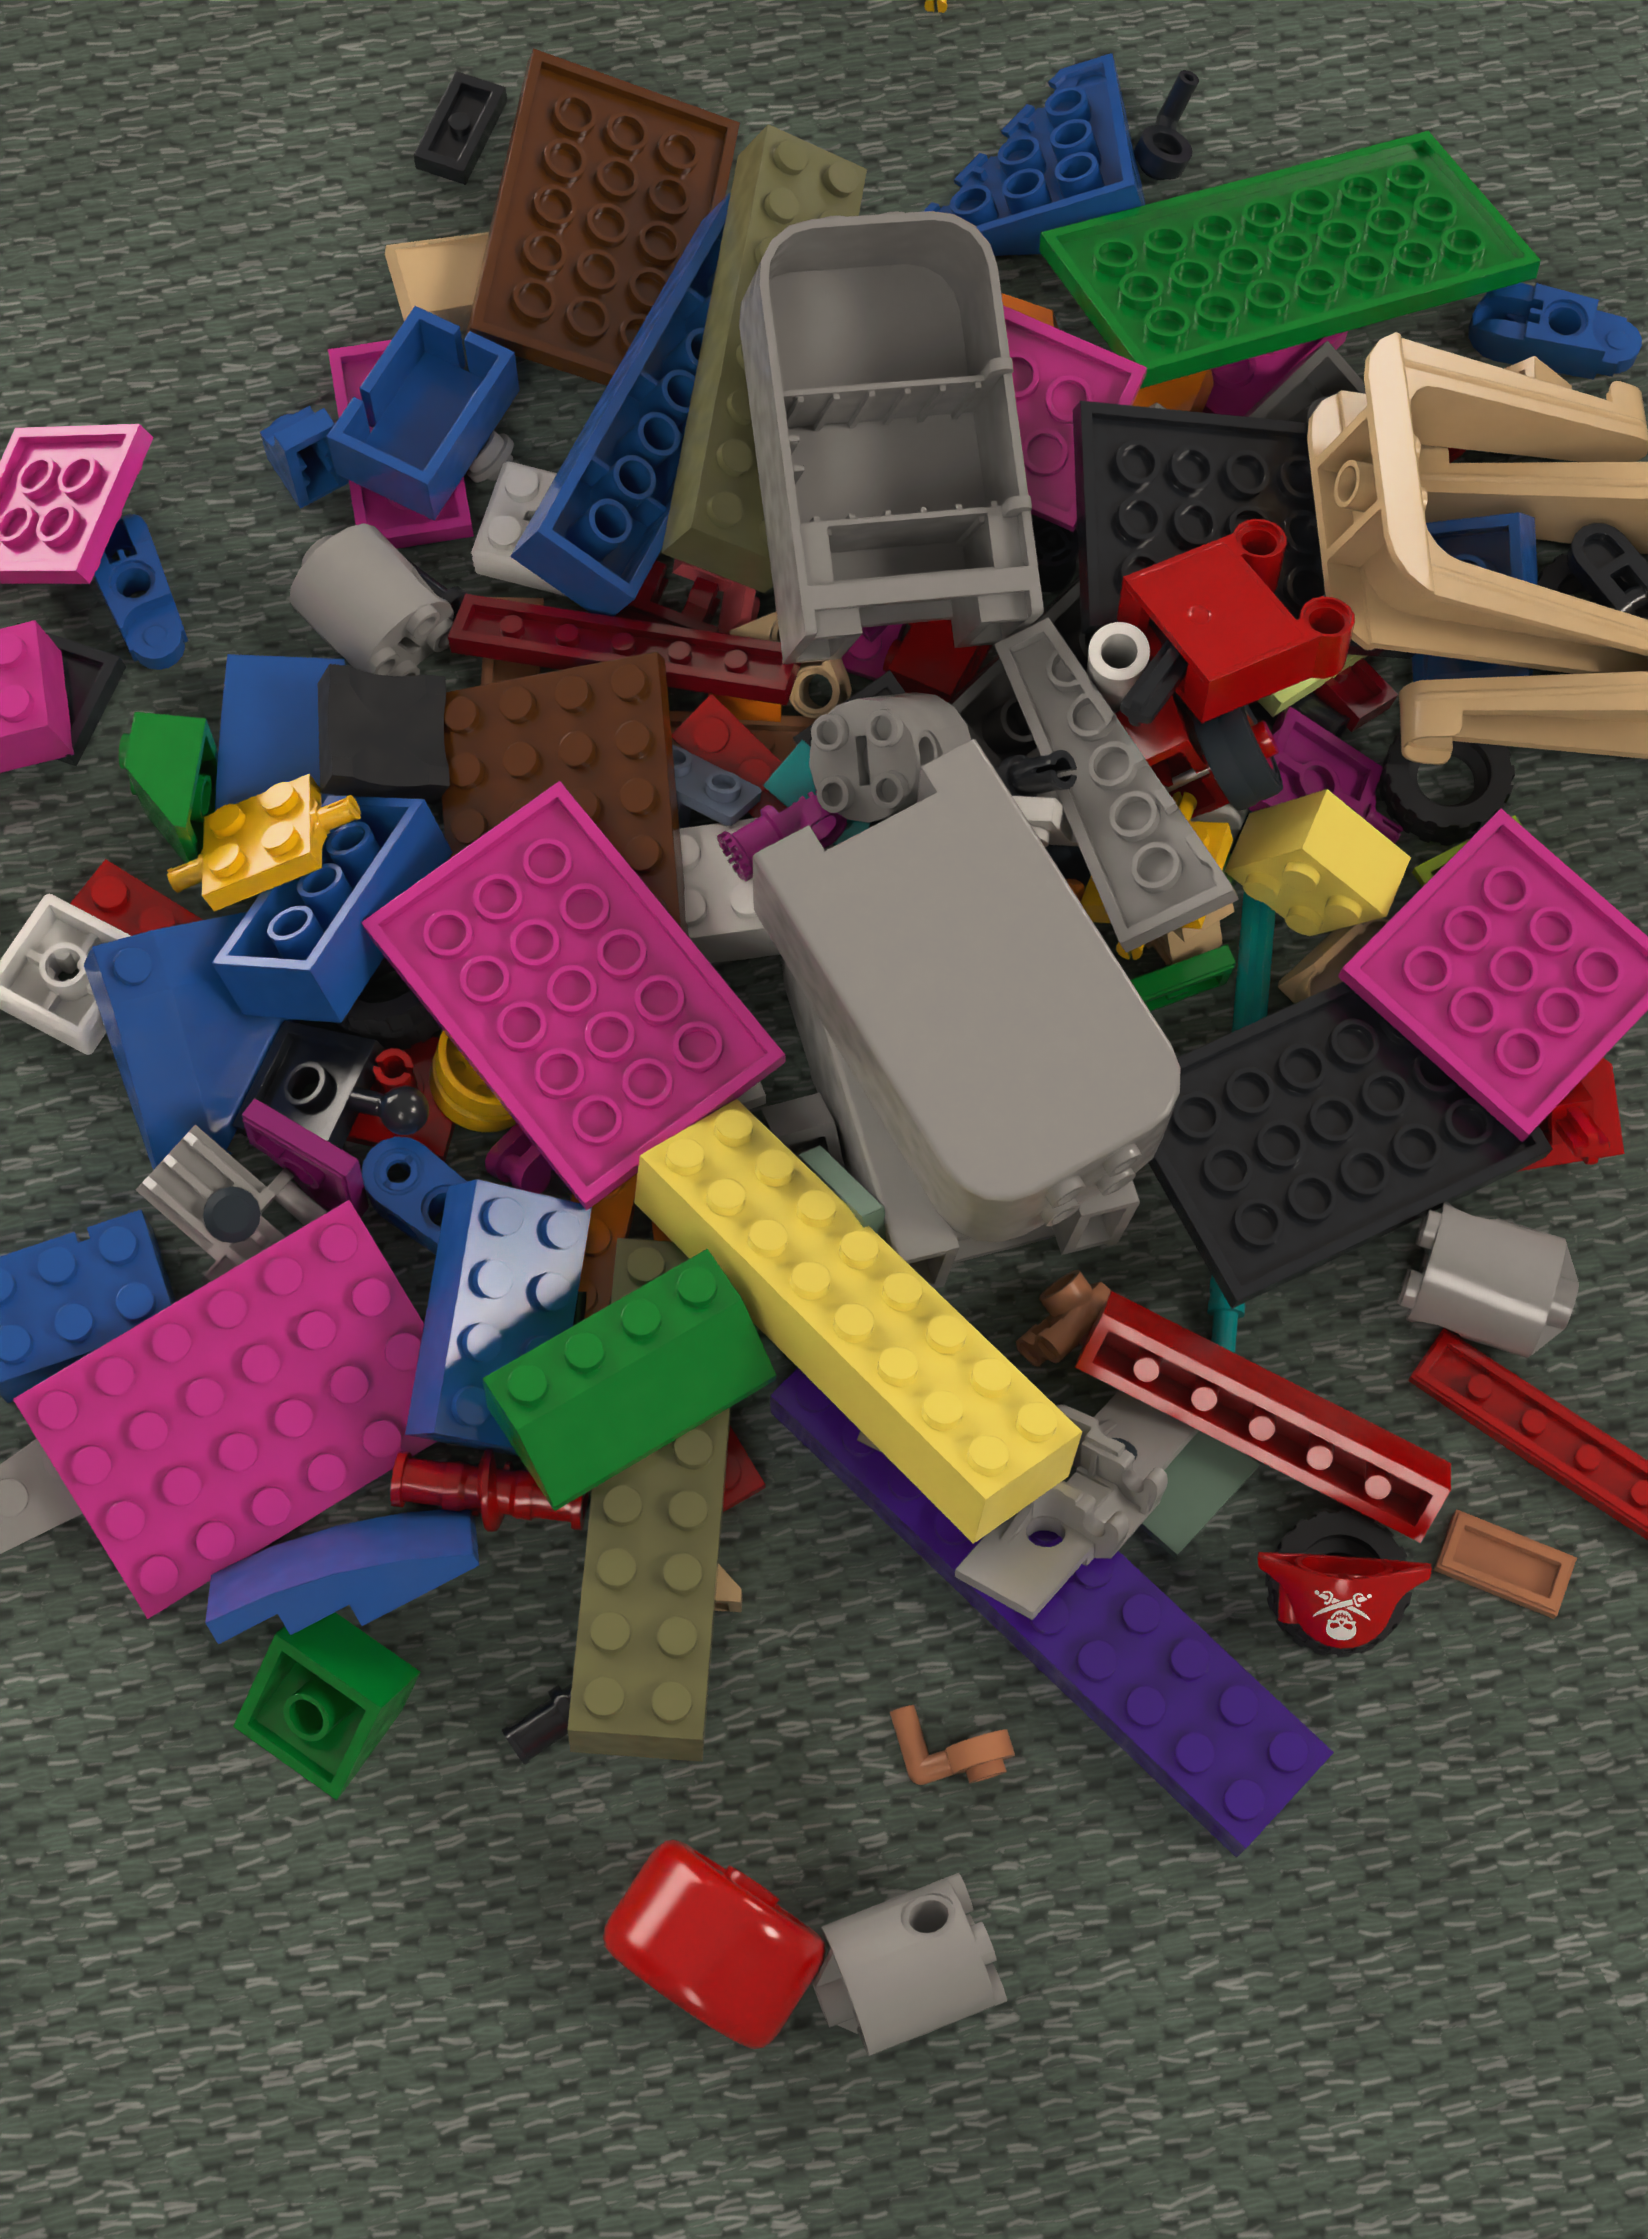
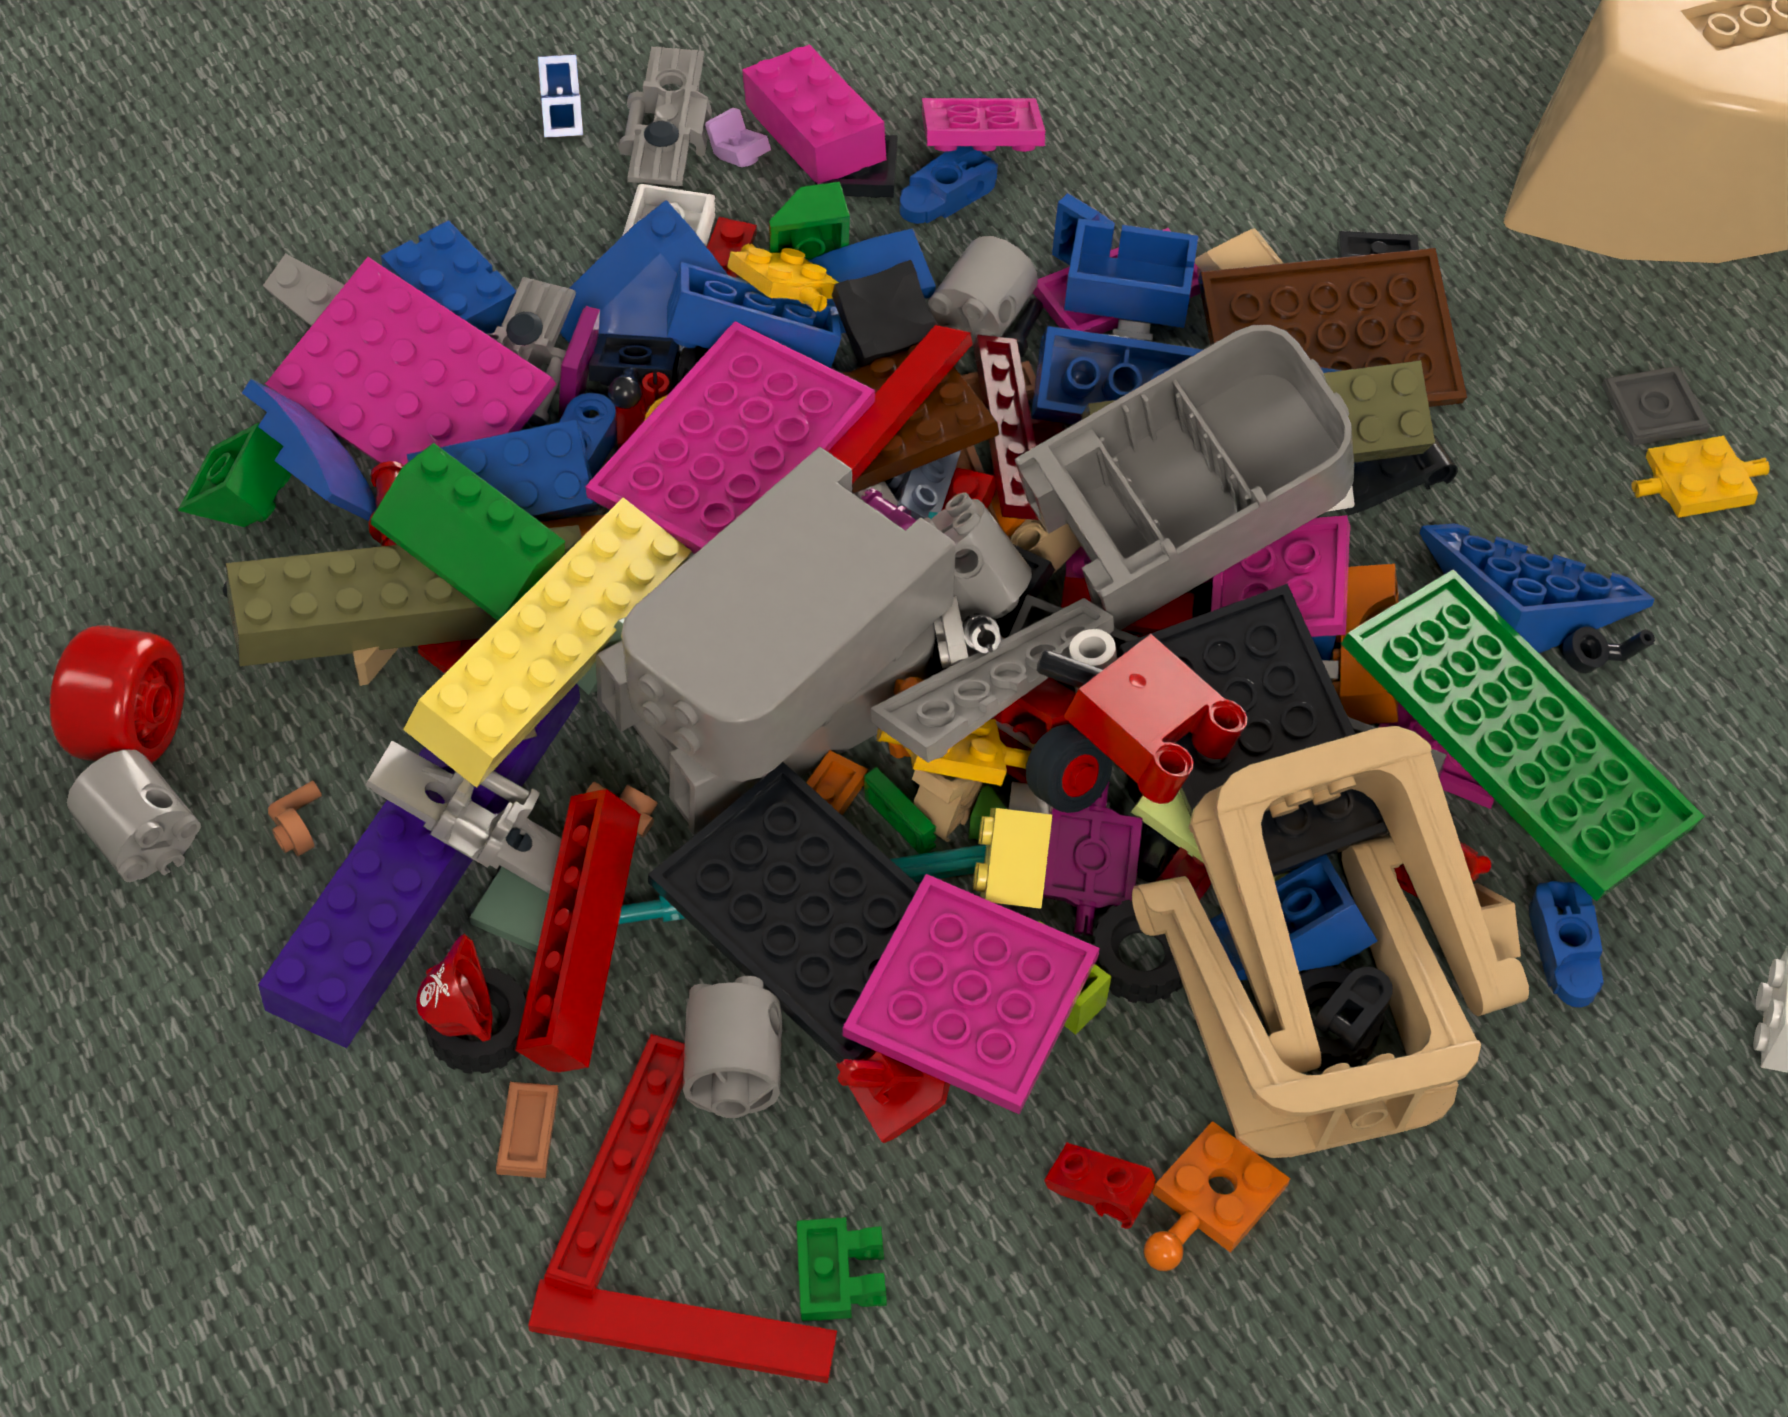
camera: 70 degrees right, 15 degrees down
(557, 754) = (901, 397): none -> red tile

